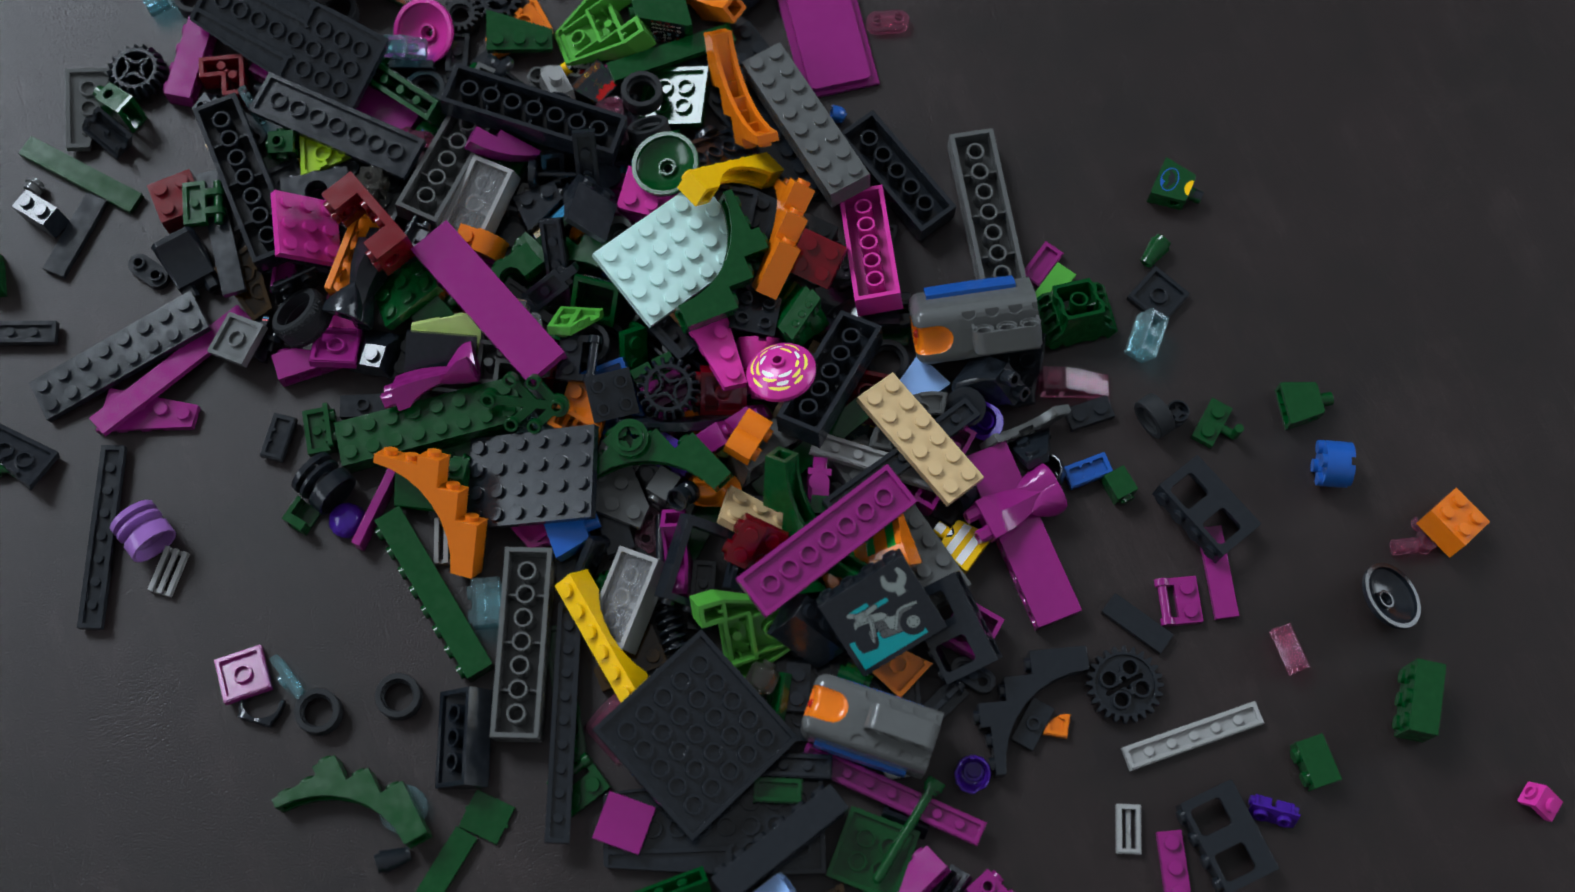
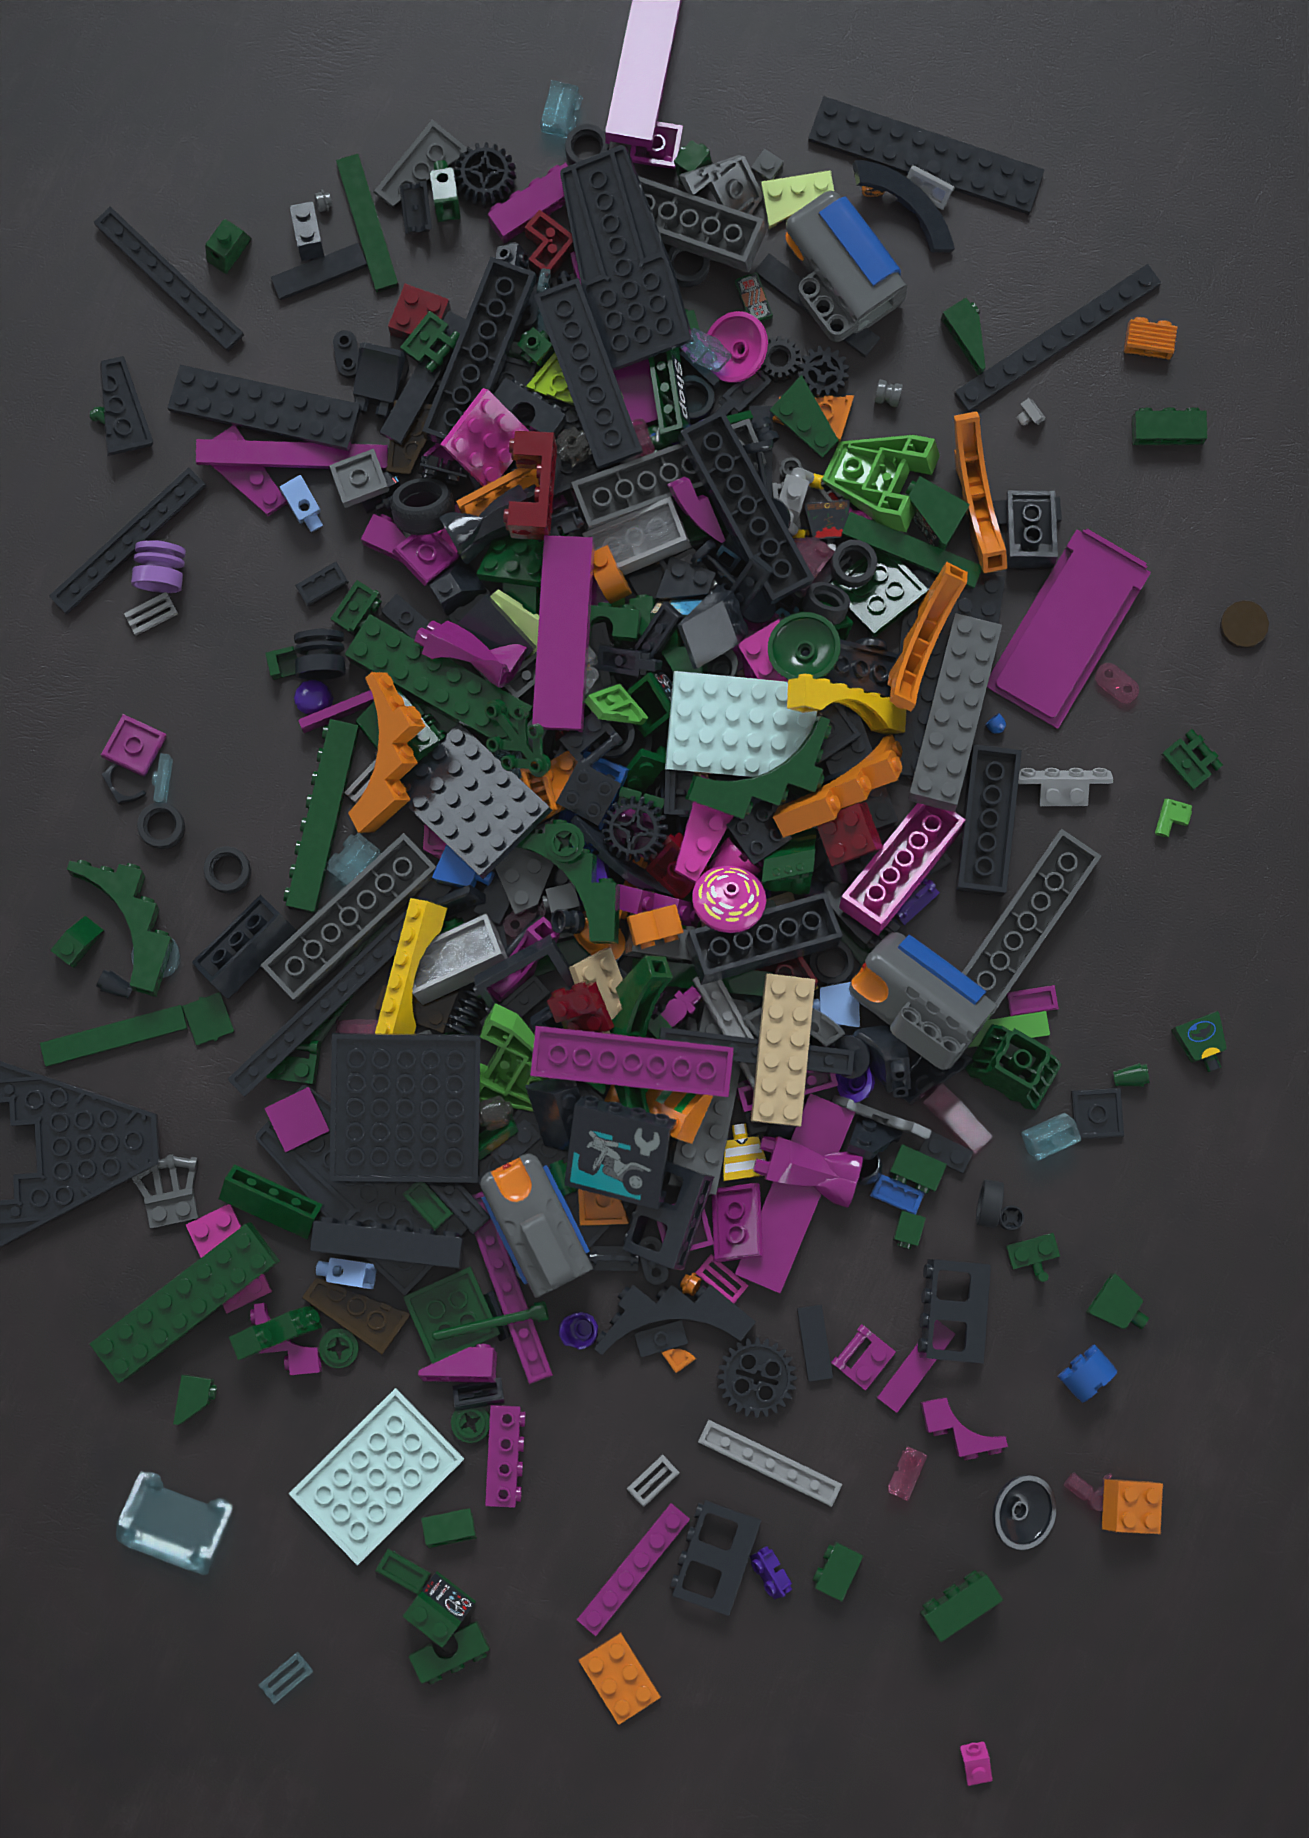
camera: 45 degrees right, 10 degrees up
(202, 389) = (296, 494): none -> light blue torso
(333, 855) = (77, 941): none -> dark green slope
(903, 266) = (917, 901): none -> dark purple hinge
(923, 112) = (1064, 787): none -> light grey bracket
(981, 29) = (1187, 764): none -> dark green plate
(1004, 591) = (737, 1222): none -> magenta tile
(1006, 68) = (1172, 812): none -> bright green piece
(1014, 666) = (690, 1284): none -> orange plate
(1016, 653) = (705, 1265): none -> dark pink tile
(1083, 440) = (917, 1169): none -> dark green brick
(1272, 590) = (968, 1444): none -> magenta arch

